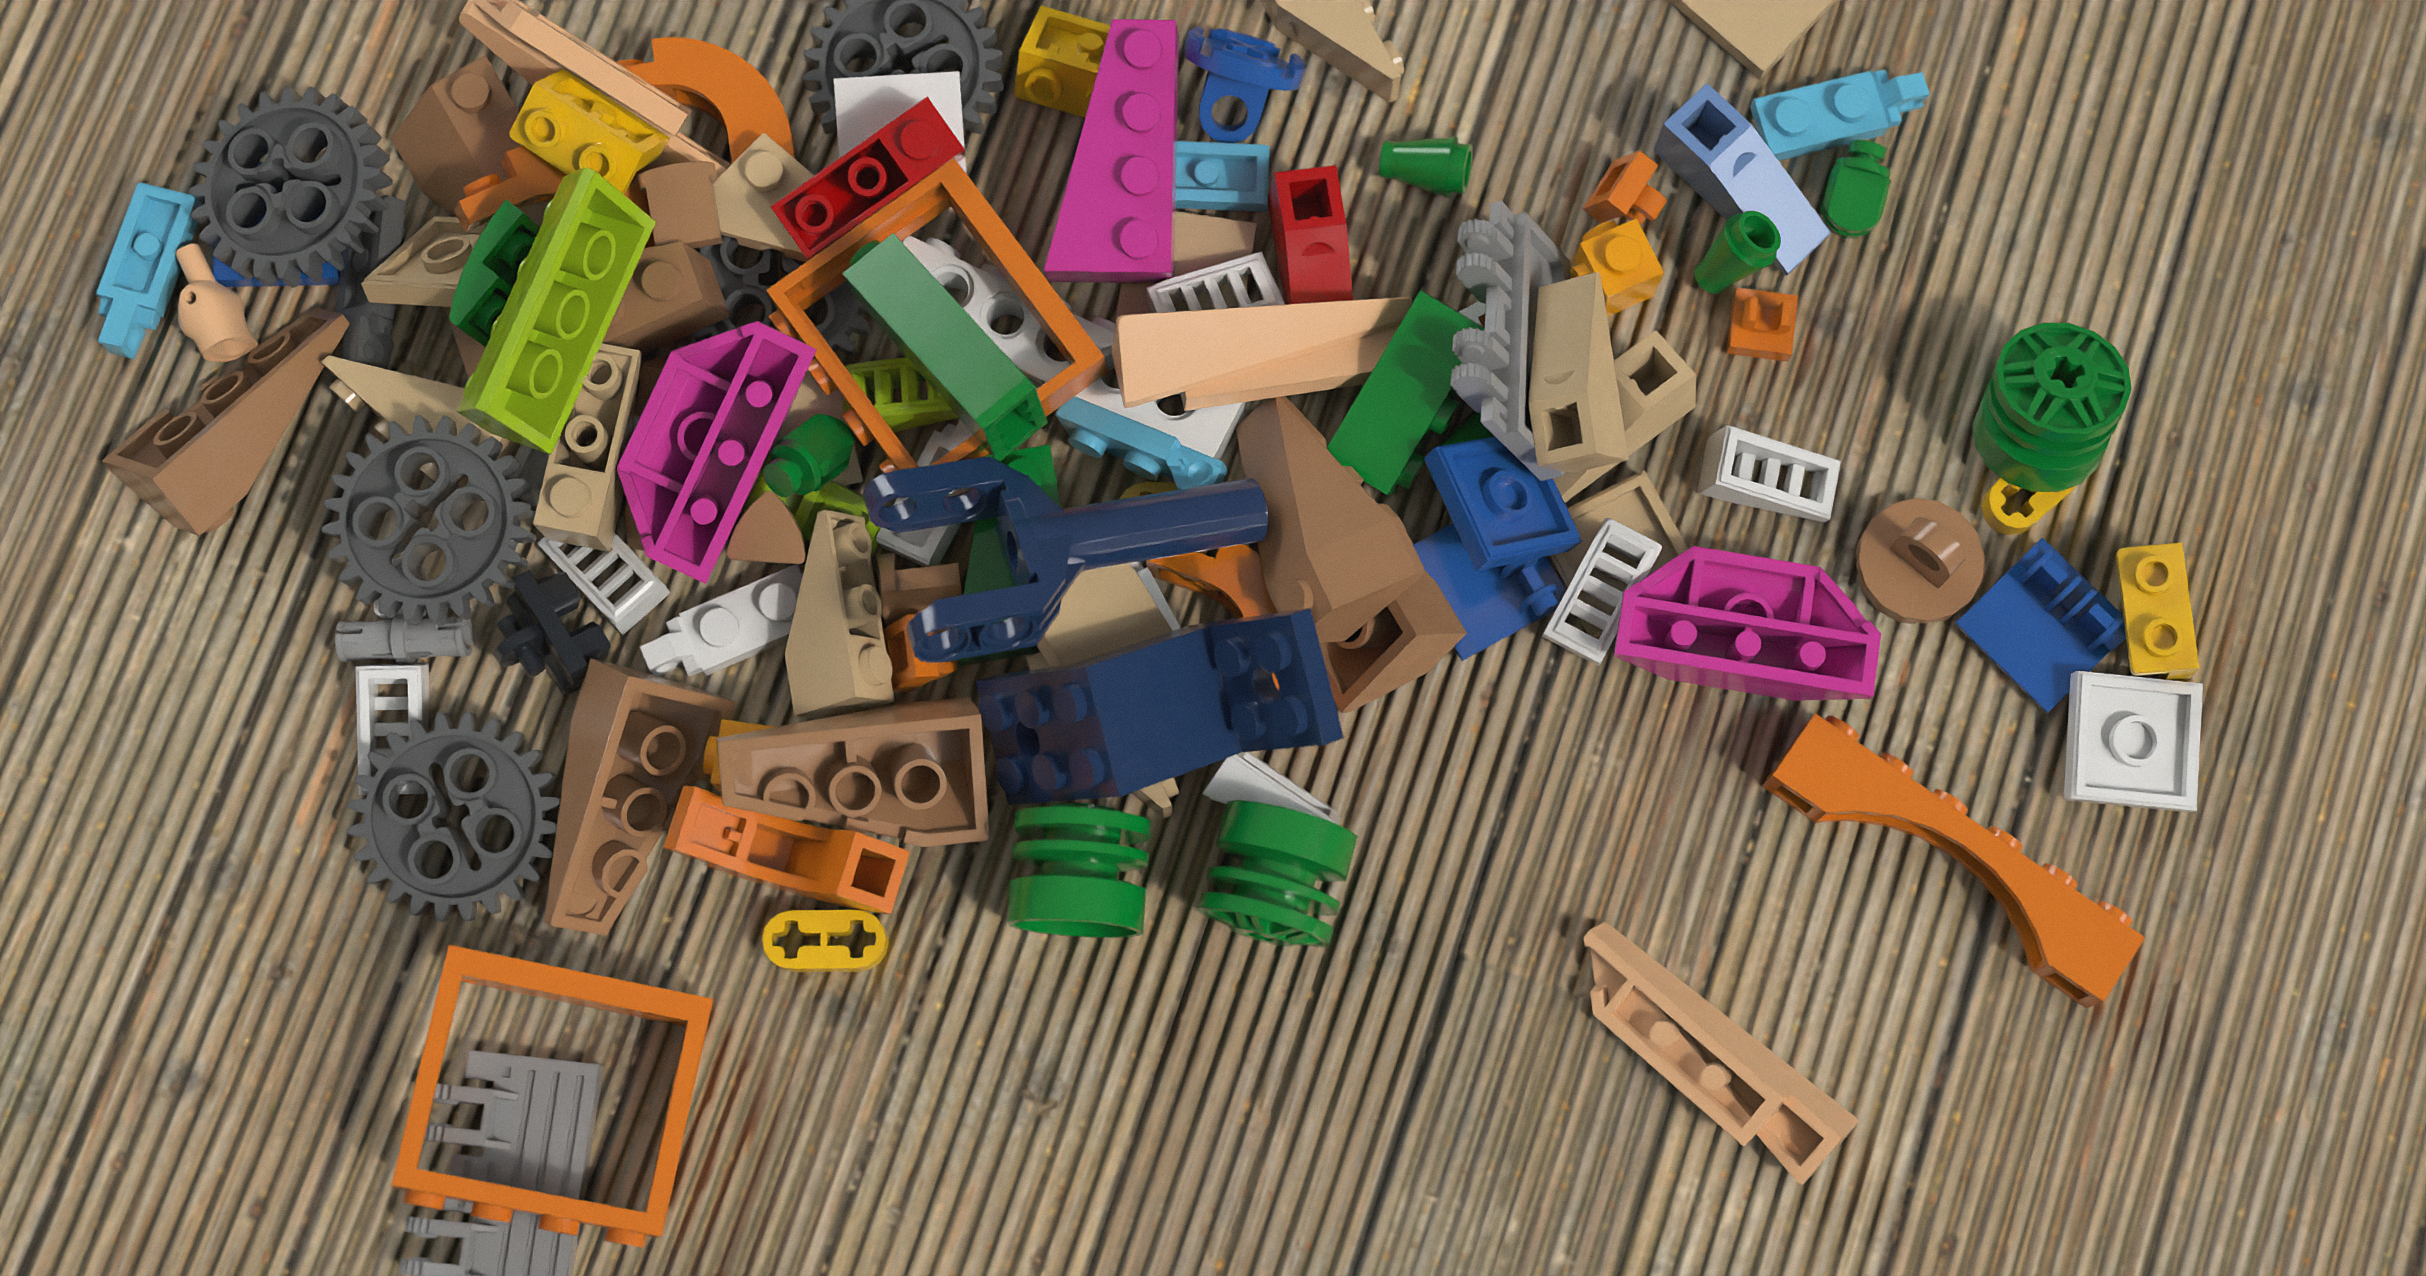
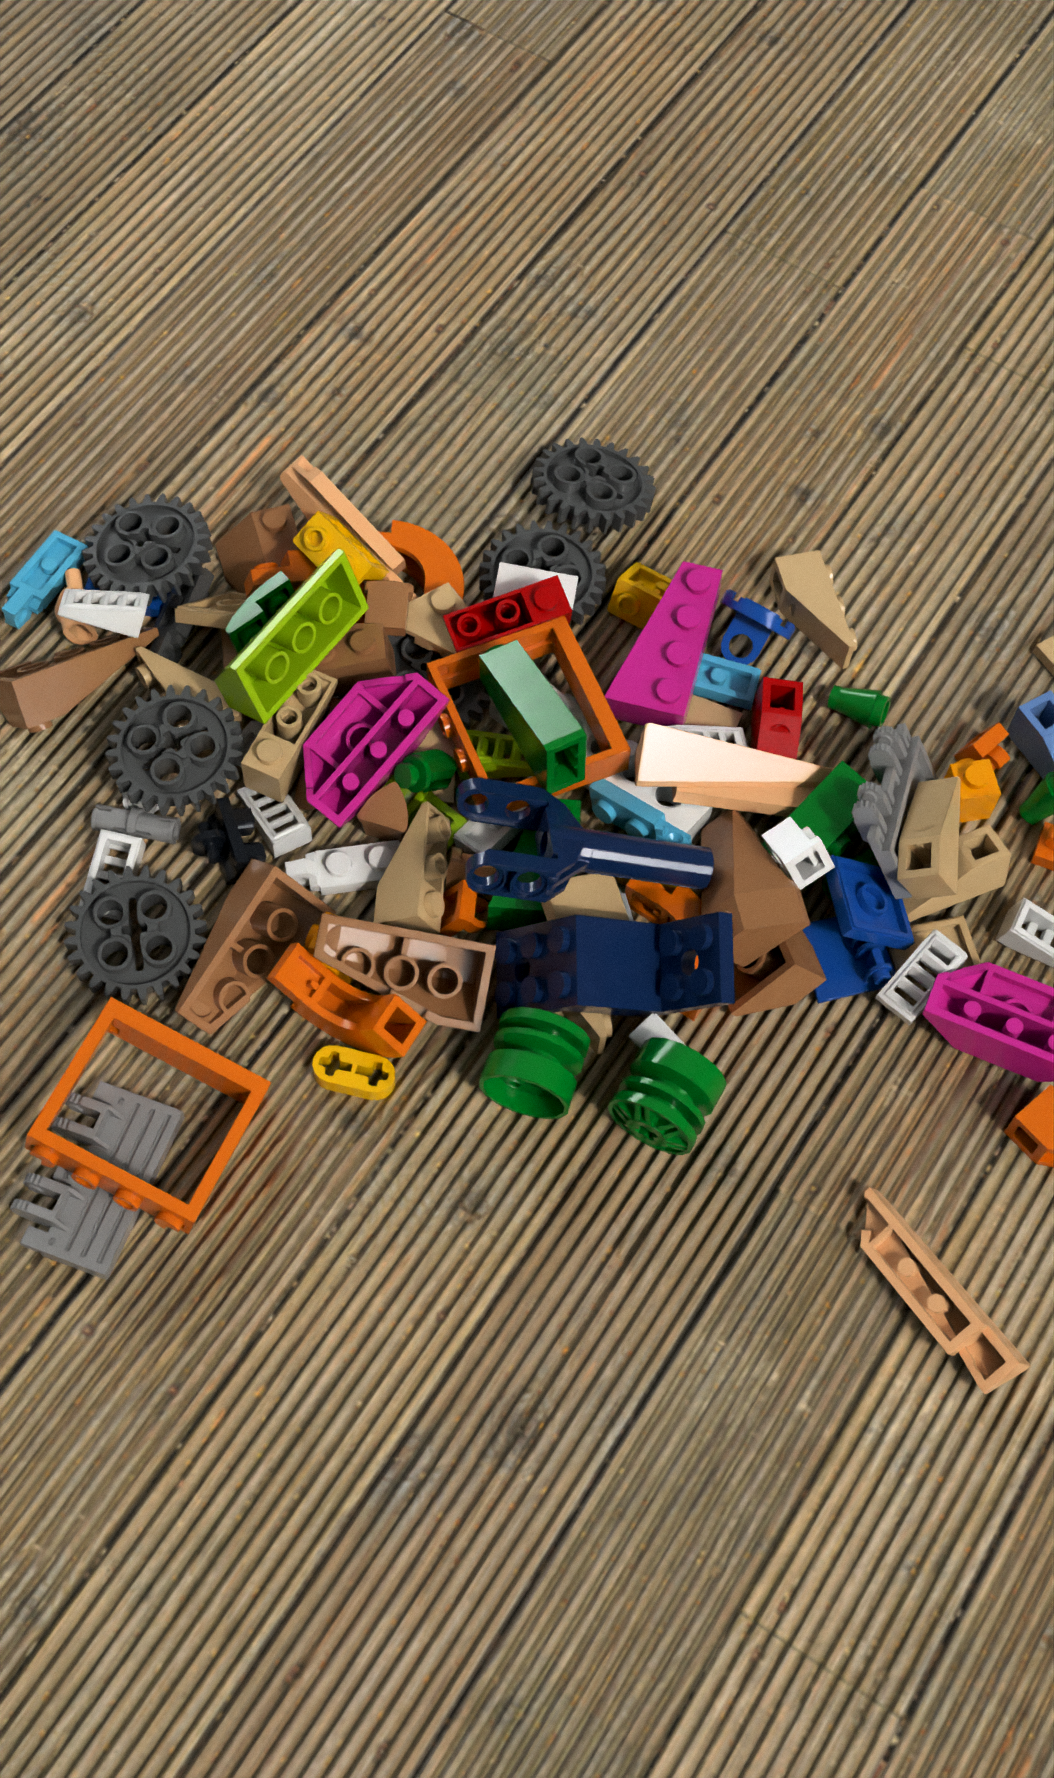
camera: 10 degrees right, 15 degrees down
(276, 310) = (110, 610): none -> white slope
(1384, 457) = (798, 852): none -> white brick

